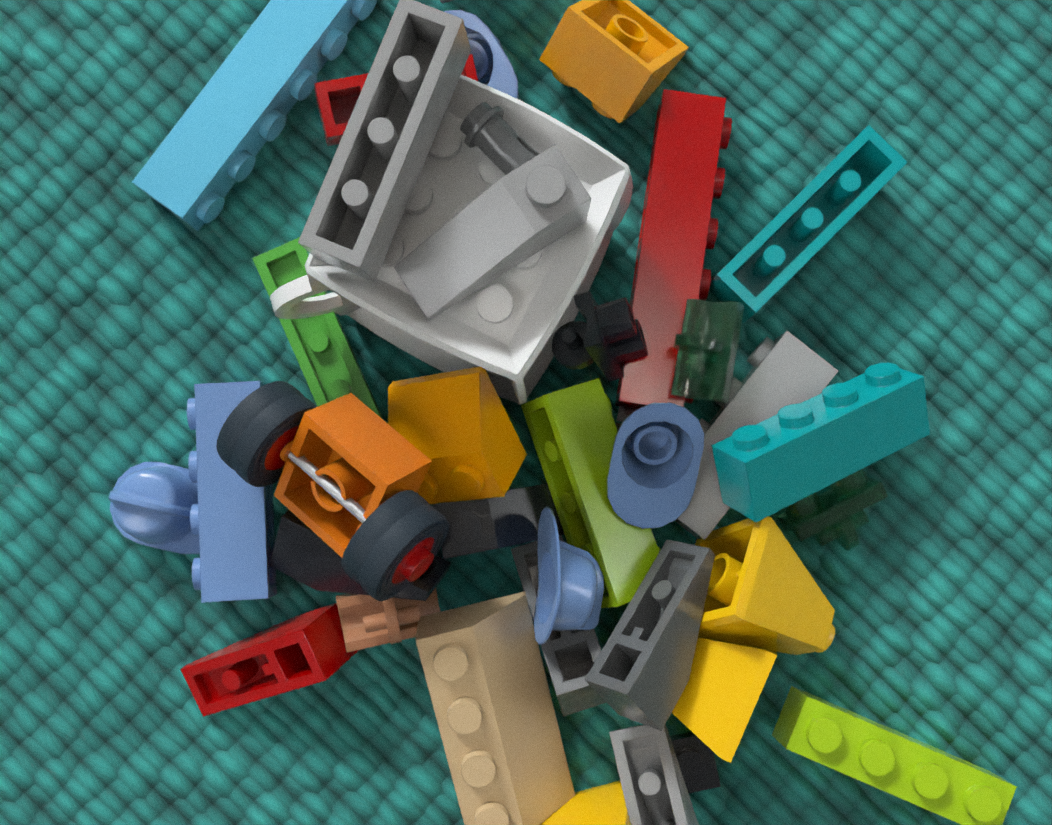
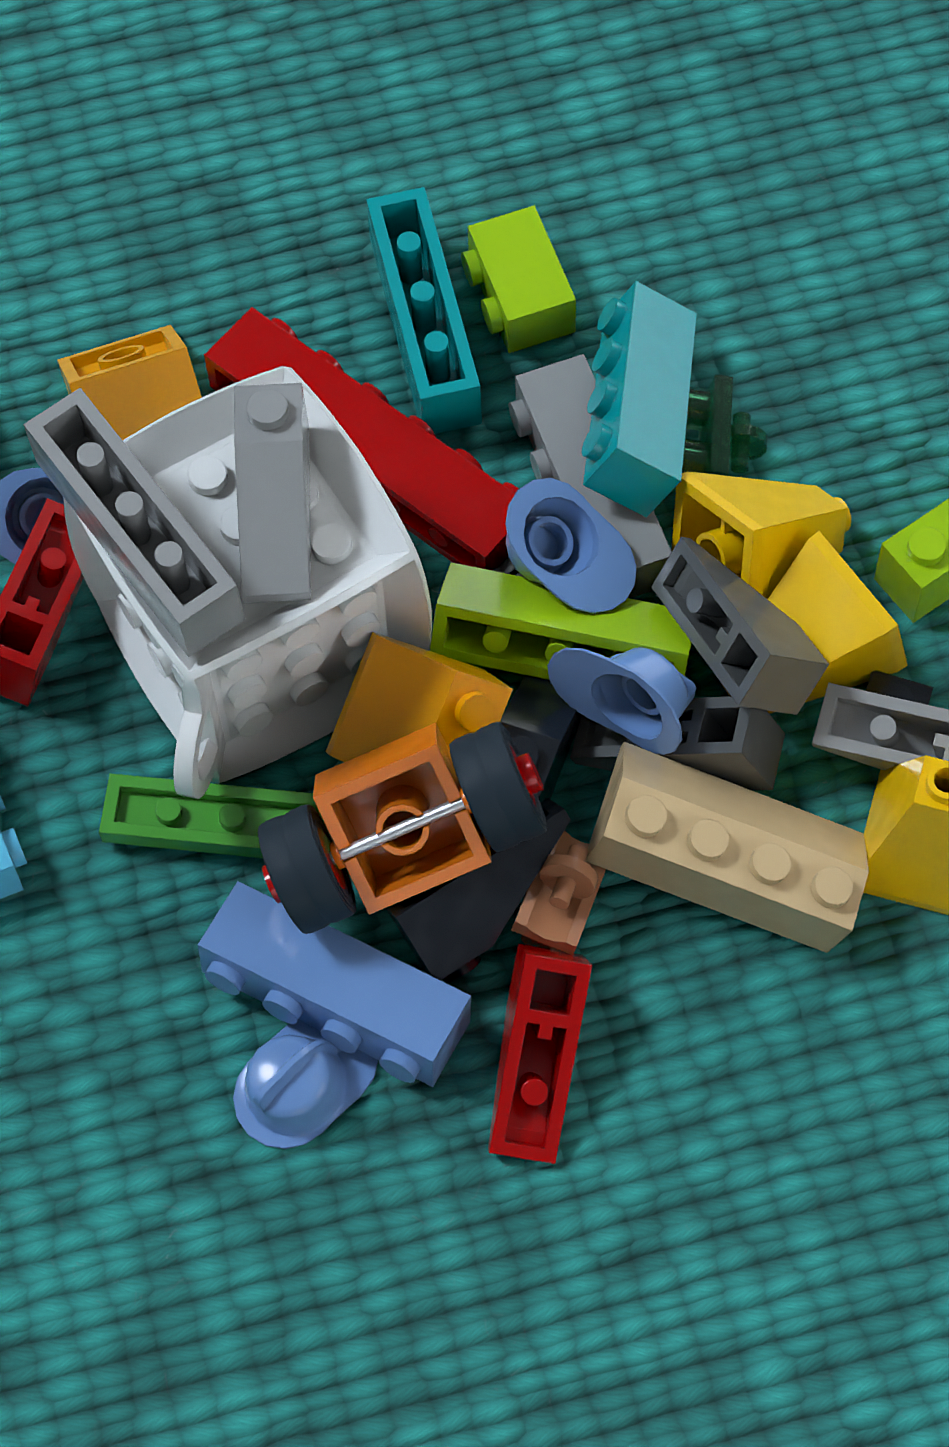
camera: 60 degrees left, 20 degrees down
(496, 138) = (190, 449): dark grey pin -> none
(606, 338) = (424, 512): black hips -> none
(707, 350) = (488, 445): clear green hips -> none
(882, 279) = (520, 279): none -> lime brick

